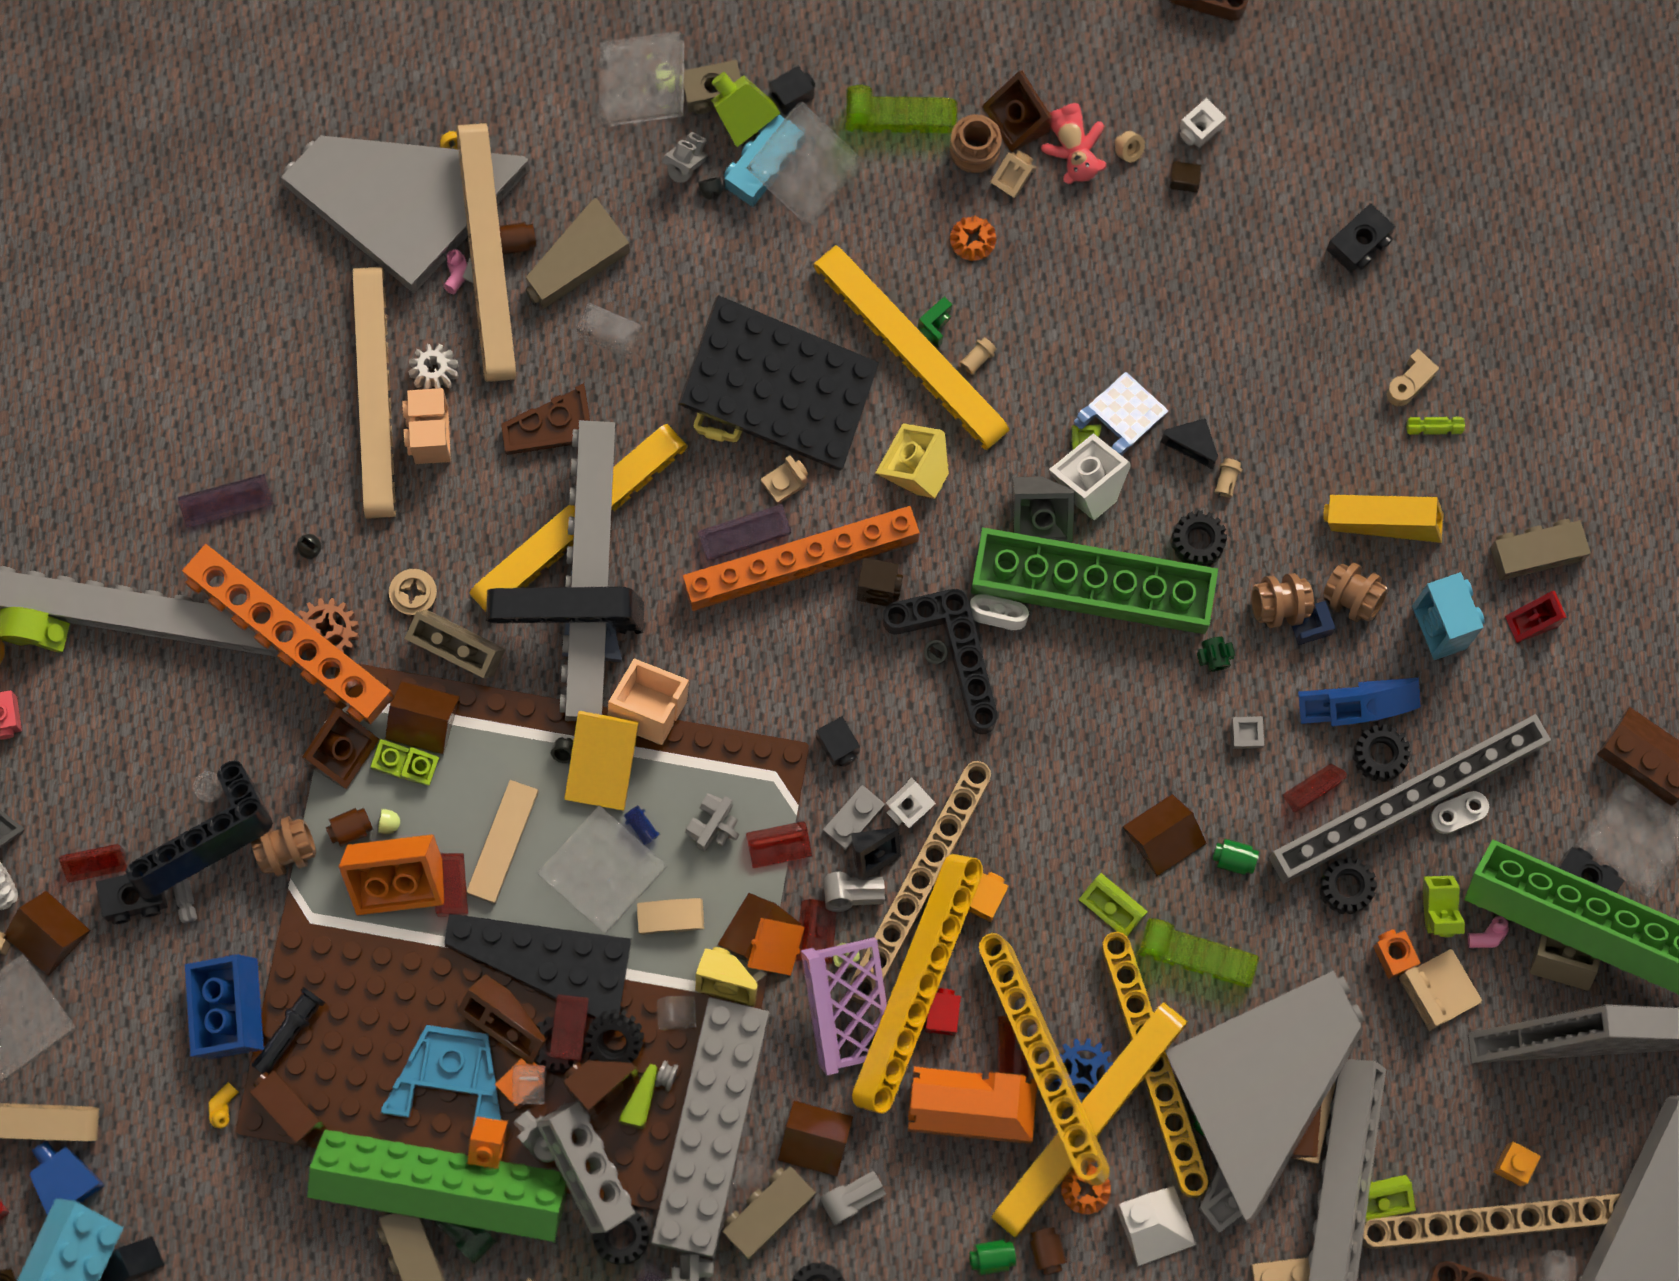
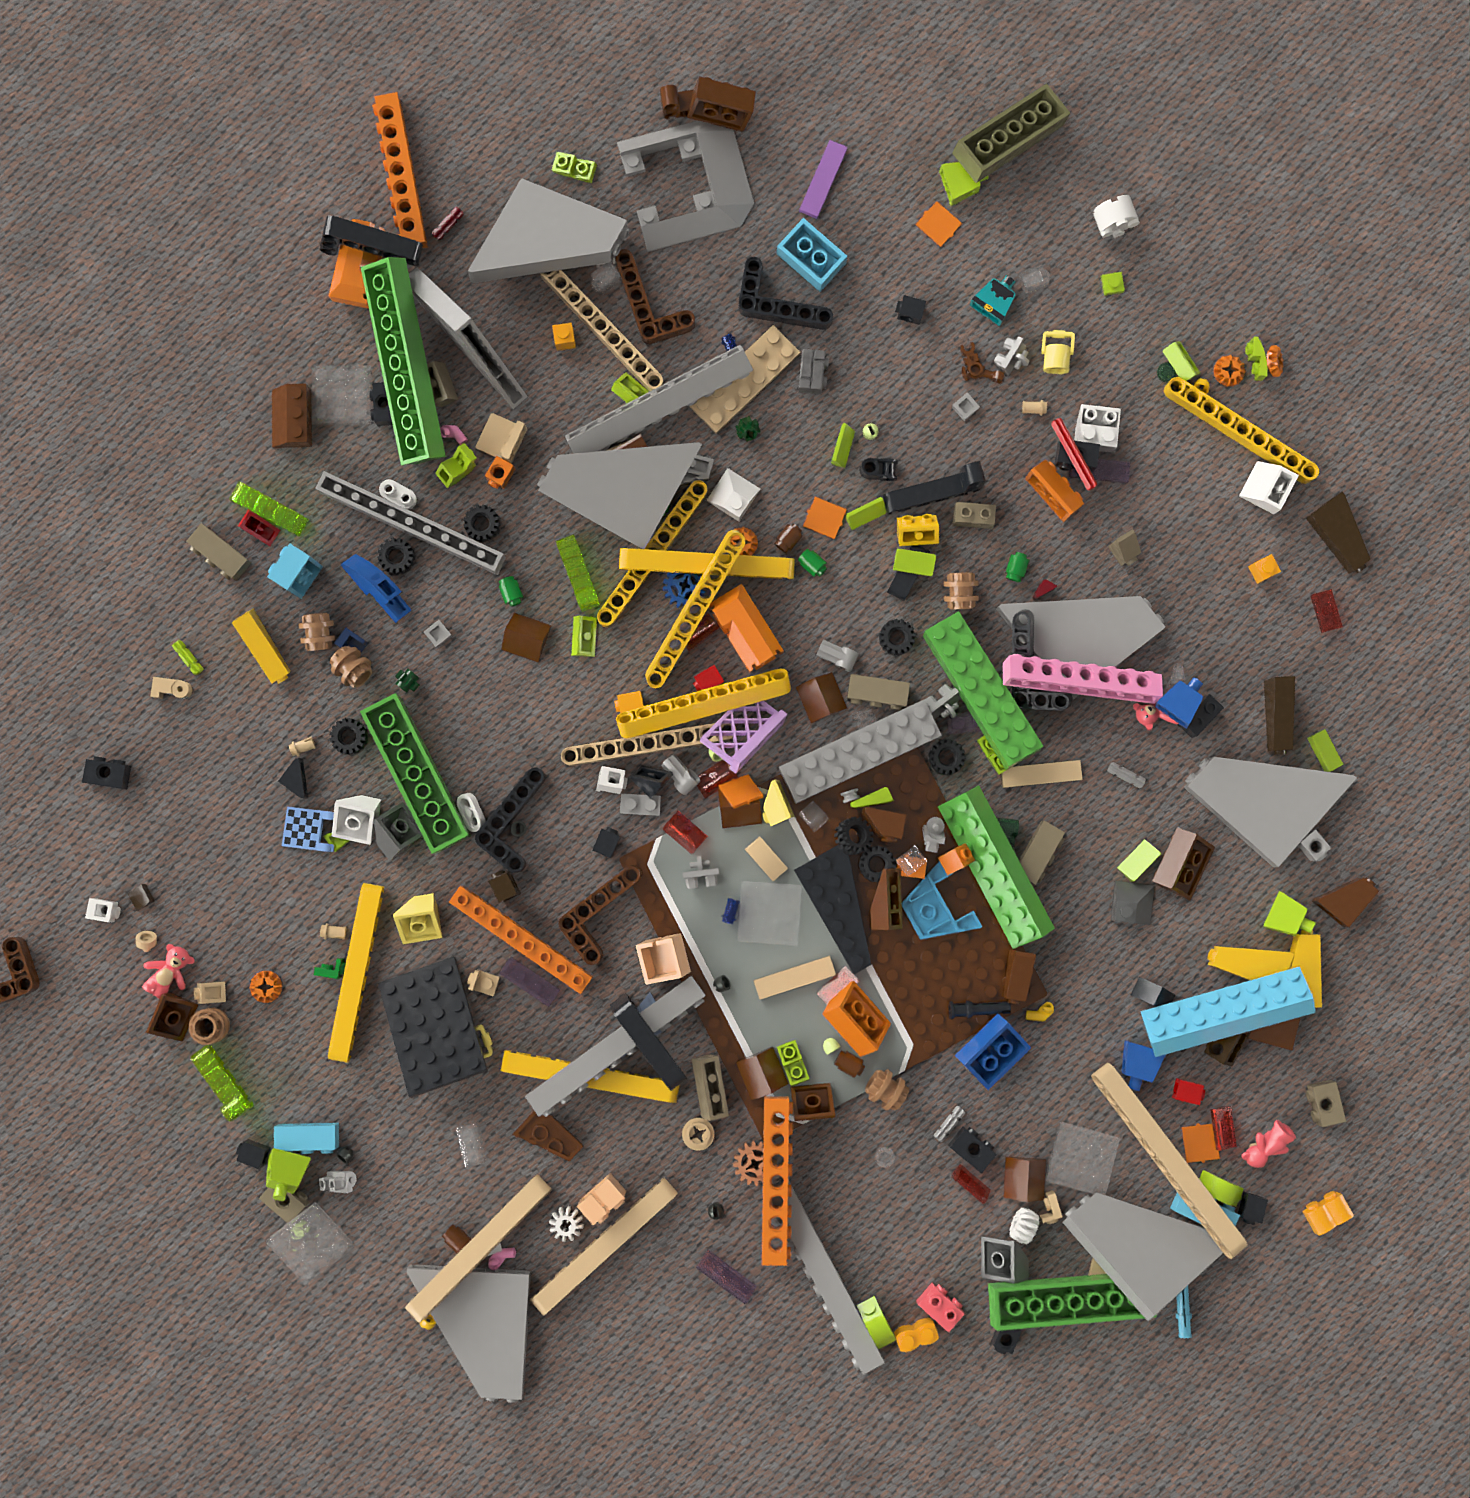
camera: 125 degrees left, 10 degrees up
(206, 842) = (914, 1128): black beam -> none
(569, 1027) = (867, 862): clear red plate -> none
(571, 1160) = (925, 825): light grey brick -> none
(577, 256) = (440, 1196): dark tan slope -> none
(601, 760) = (713, 958): yellow tile -> none
(773, 669) = (594, 908): none -> reddish brown beam
(805, 164) = (292, 1111): clear plate -> none
(1314, 787) = (441, 578): clear red slope -> none
(1551, 644) = (268, 508): none -> clear neon green beam

